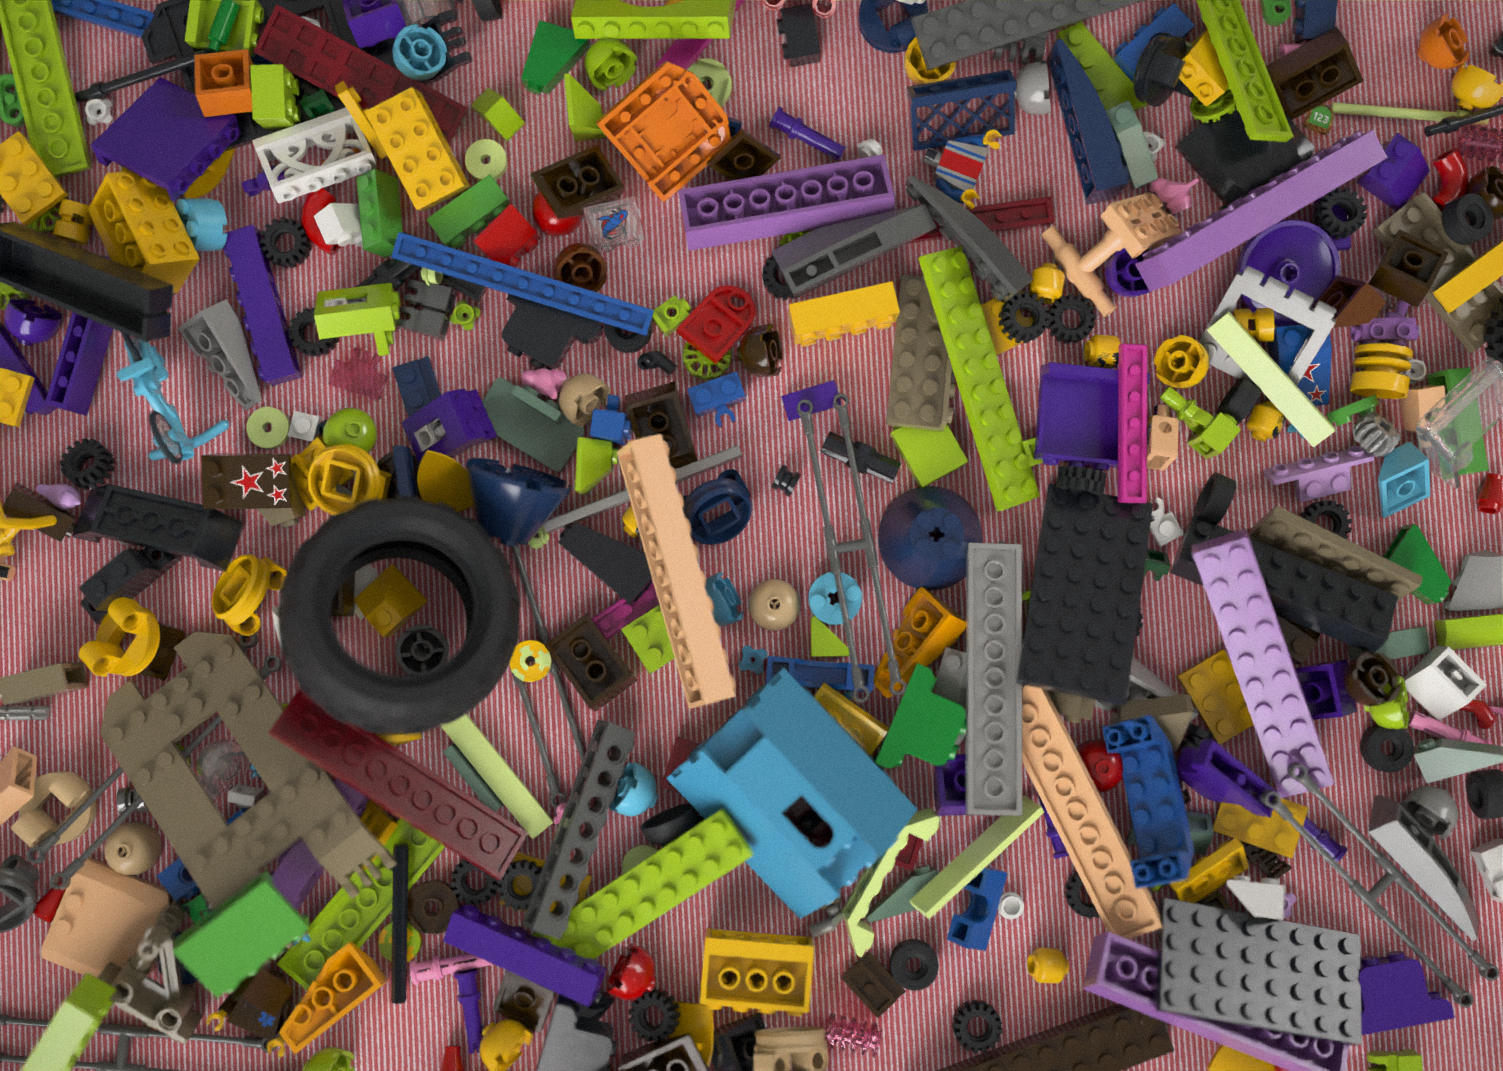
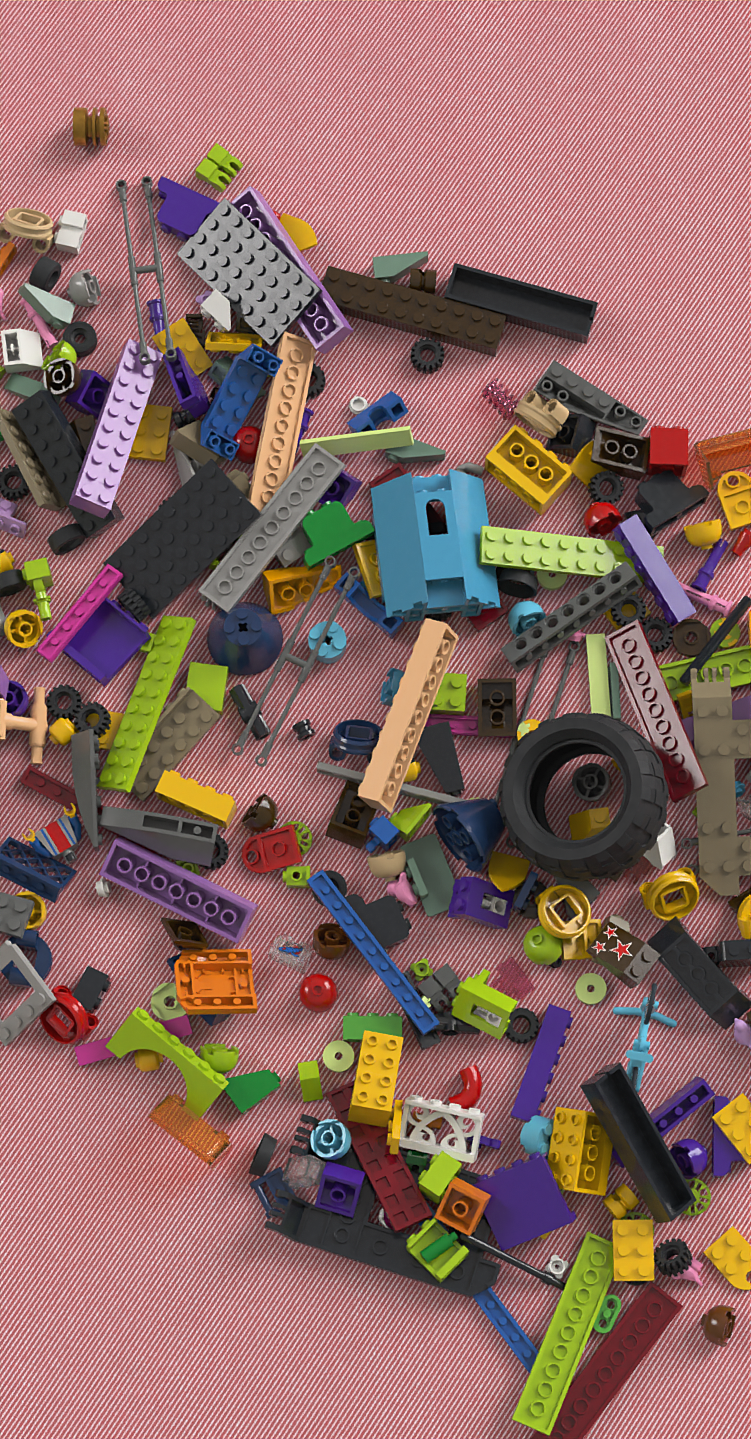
camera: 145 degrees left, 10 degrees down
(96, 472) = (720, 1032): black tyre -> none
(221, 341) = (583, 1051): light grey wedge -> none
(271, 236) = (495, 1082): black tyre -> none
(304, 426) = (568, 973): white plate -> none
(340, 224) = (452, 1070): white brick -> none
(379, 211) = (427, 1064): bright green brick -> none
(417, 384) = (481, 947): dark blue plate -> none
(508, 238) = (362, 991): red slope -> none
(524, 1001) = (674, 547): dark brown plate -> none
(578, 183) = (293, 989): dark brown slope -> none
(582, 111) = (257, 1036): lime slope -> none
(656, 360) = (326, 858): black arm -> none
(717, 396) = (306, 807): blue brick -> none
(759, 656) = (406, 643): dark azure plate -> none
(774, 618) = (365, 673): tan cylinder -> none
(796, 129) = (136, 934): dark purple pin -> none
(820, 396) = (246, 765): dark purple slope -> none
(824, 641) = (352, 622): lime slope -> none
(873, 984) = (468, 418): dark brown plate -> none
(923, 825) = (455, 451): yellowish green slope -> none
(925, 975) = (442, 403): black tyre -> none
(1047, 965) = (362, 359): yellow head -> none
(1102, 351) = (61, 669): yellow head -> none
(1158, 563) = (126, 528): dark green tile -> none
(1161, 438) = (71, 589): light nougat torso -> none
(1164, 526) = (105, 548): white plate -> none
(1423, 861) = (112, 265): wedge -> none
(1482, 712) = (11, 319): red arm -> none

